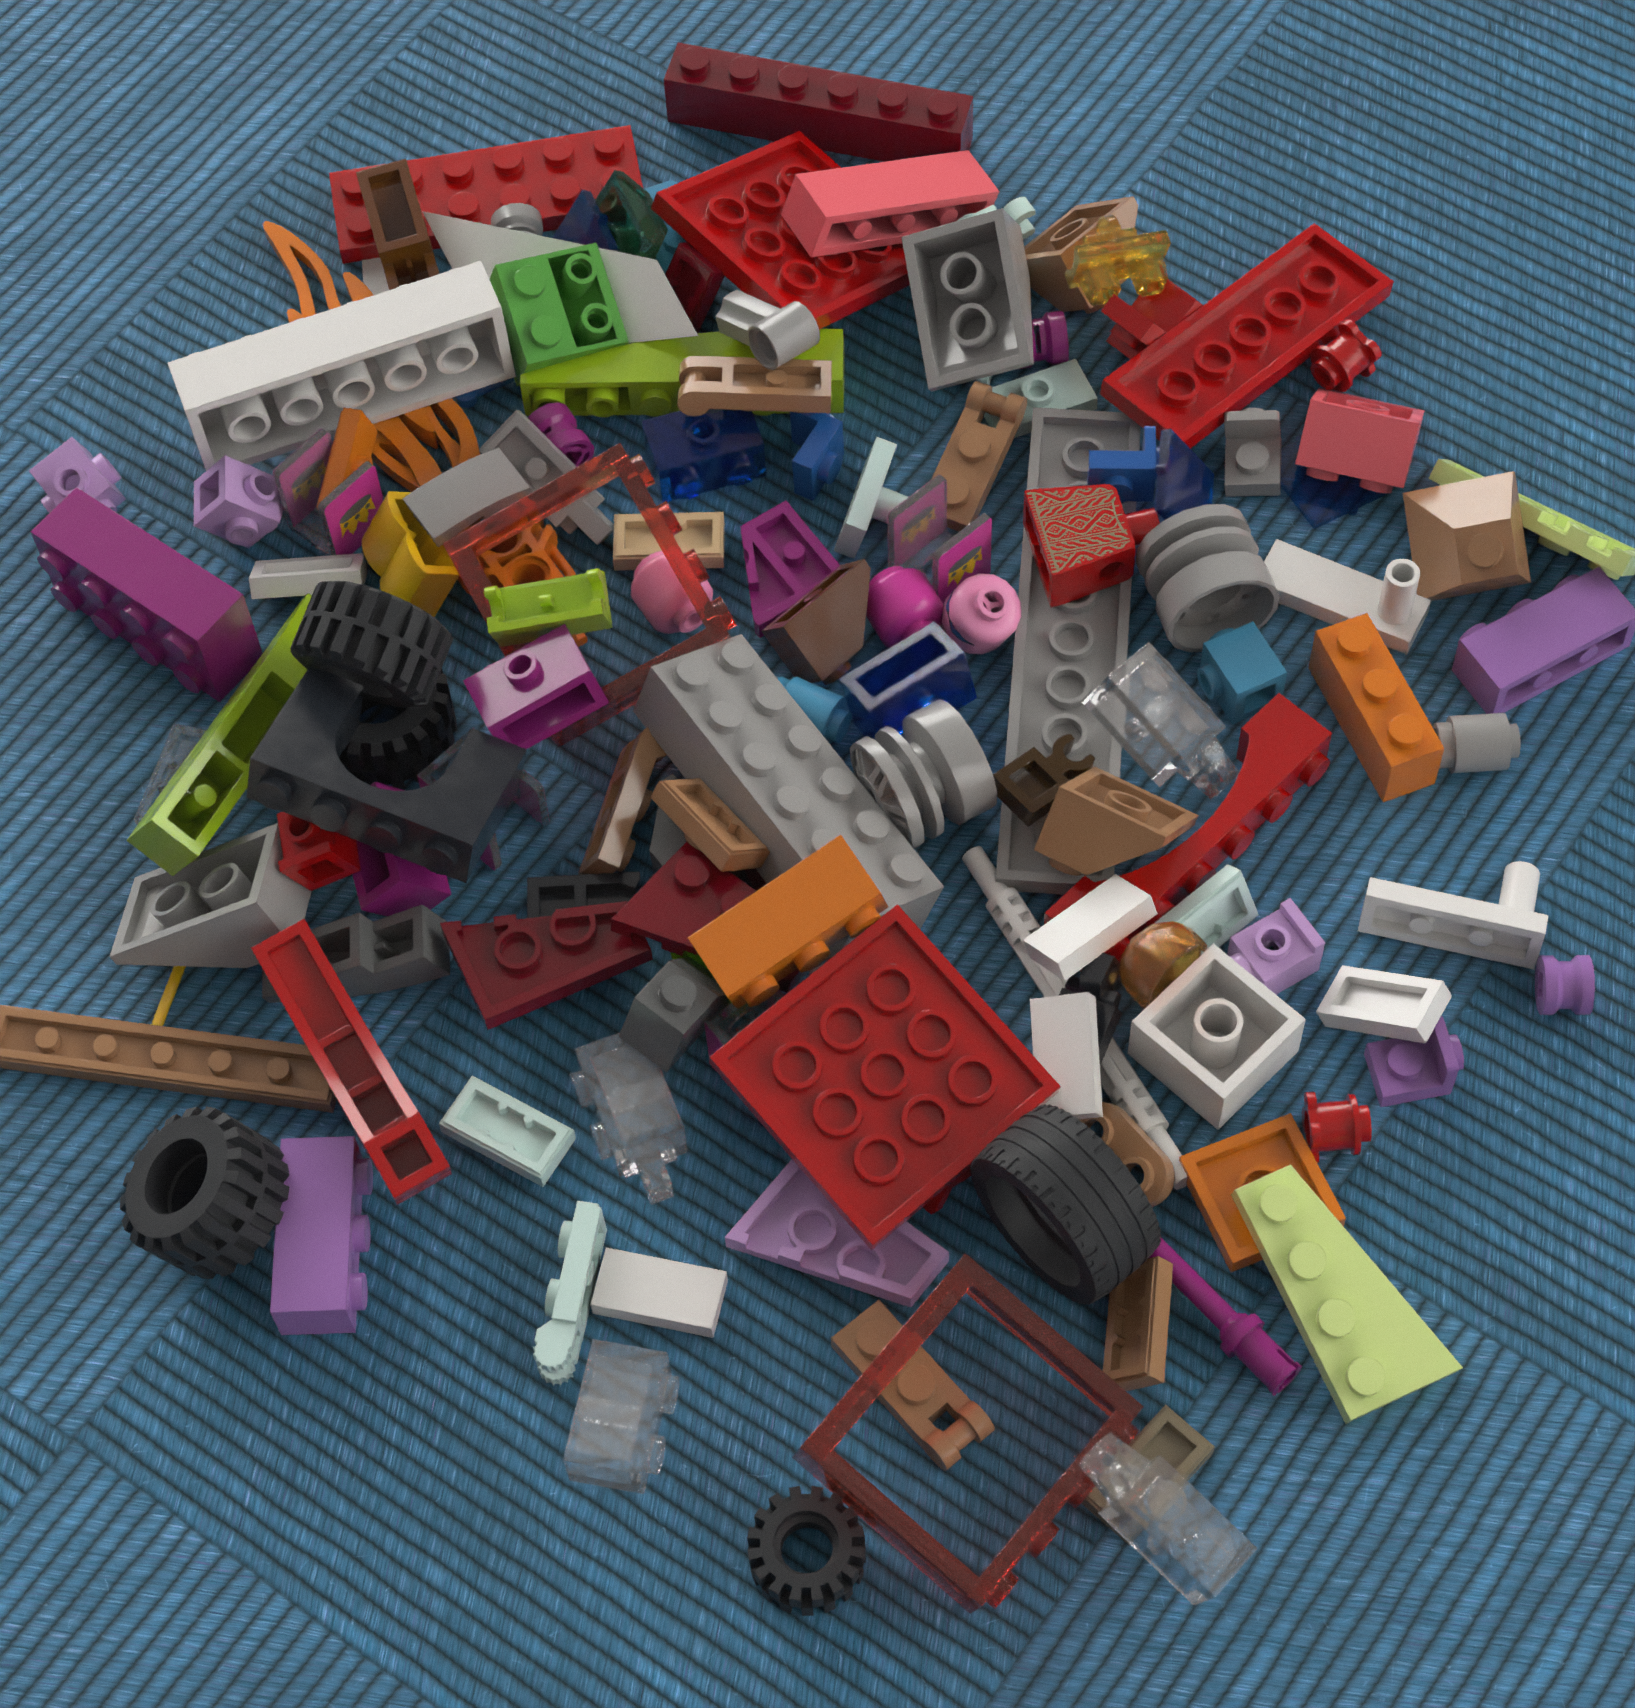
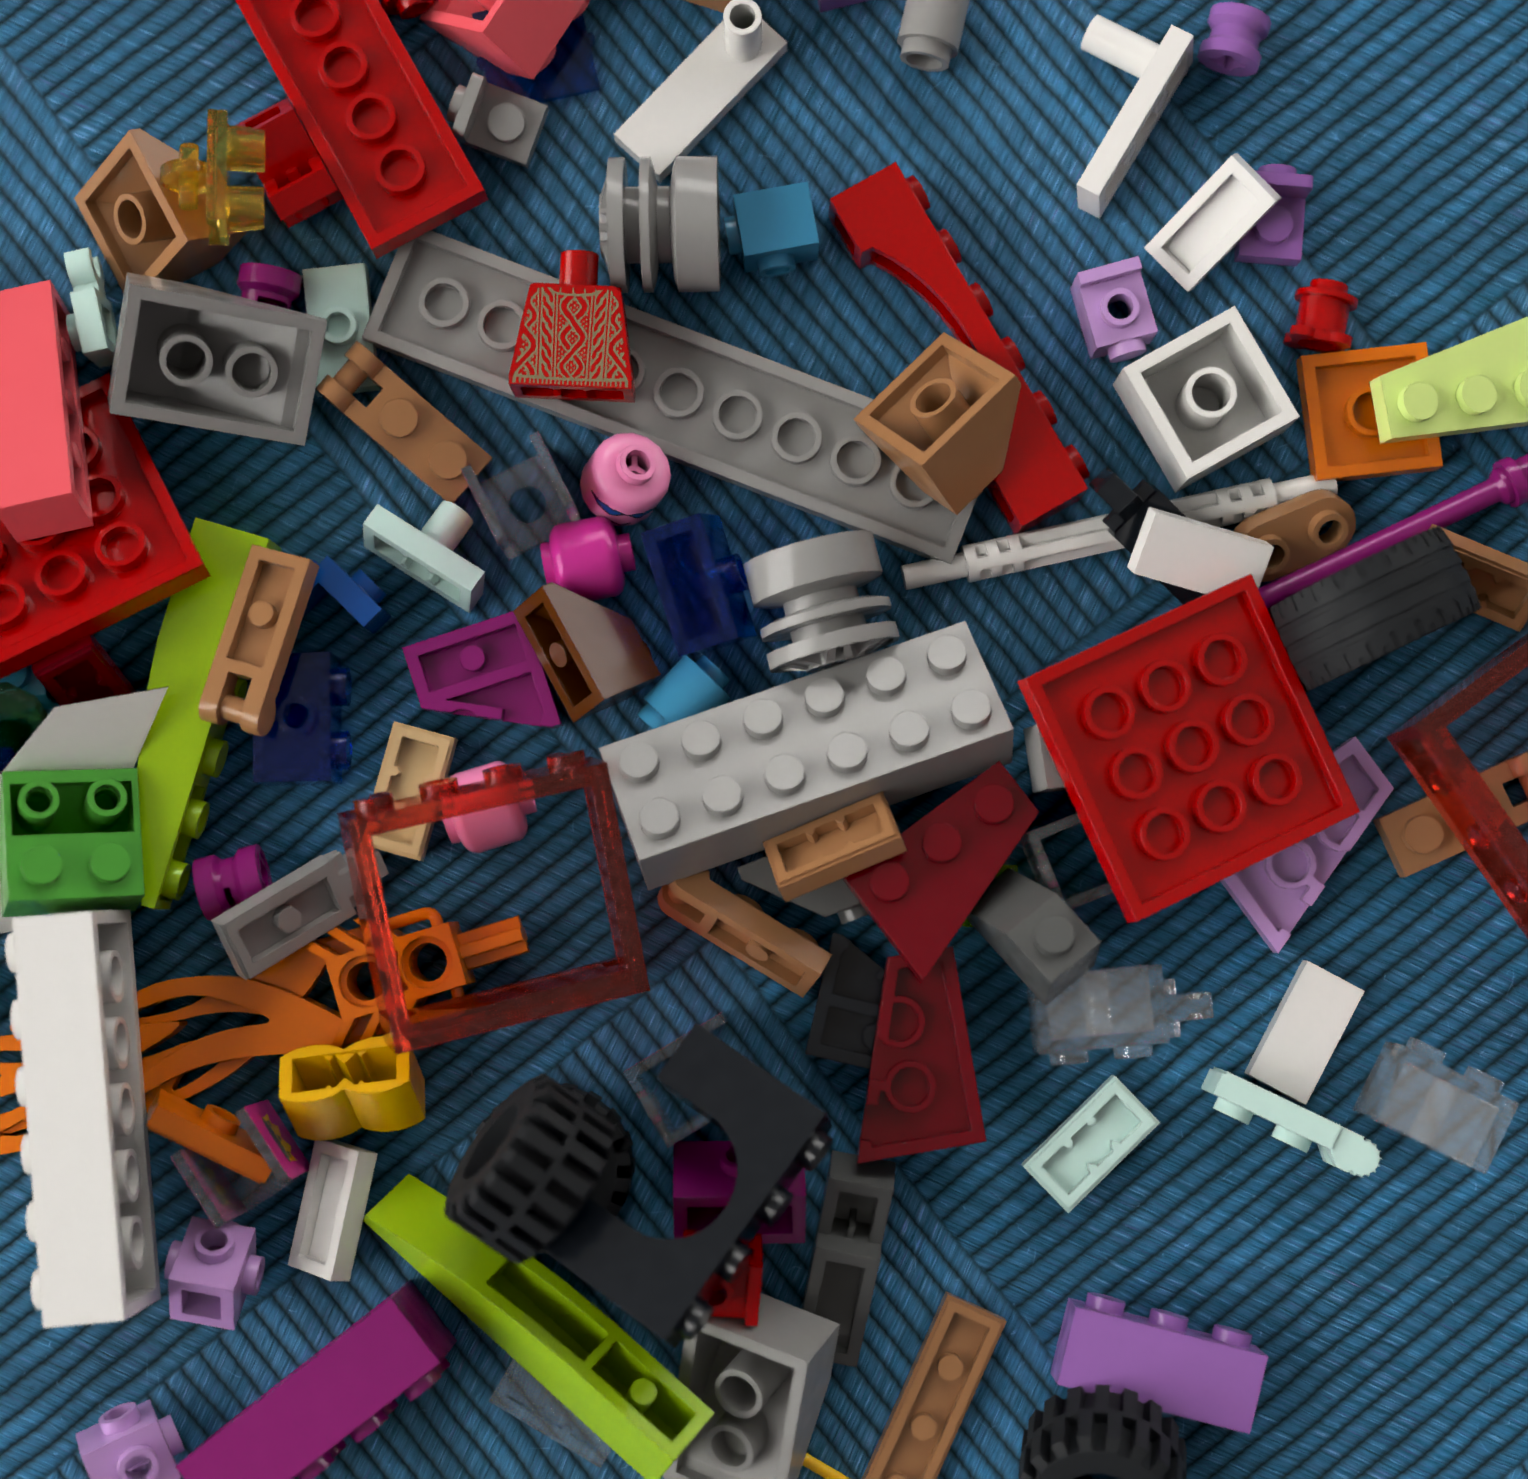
camera: 75 degrees left, 25 degrees up
(352, 1062) = (1013, 1288): red arch -> none
(466, 494) = (313, 1008): light grey slope -> none
(536, 690) = (618, 995): magenta brick -> none
(538, 607) = (522, 955): lime hinge -> none
(771, 332) = (205, 600): light grey piece -> none
(789, 924) = (1007, 797): orange brick -> none
(1033, 780) = (864, 485): dark brown plate -> none
(1090, 927) = (1068, 485): white tile -> none
(1128, 471) = (506, 272): blue bracket -> none
(1157, 959) = (1128, 428): clear orange hair -> none
(1162, 723) = (821, 332): clear hinge -> none
(1181, 478) = (538, 210): clear blue piece -> none
(1216, 907) = (1062, 372): light aqua plate -> none
(1375, 707) = (864, 105): orange brick -> none

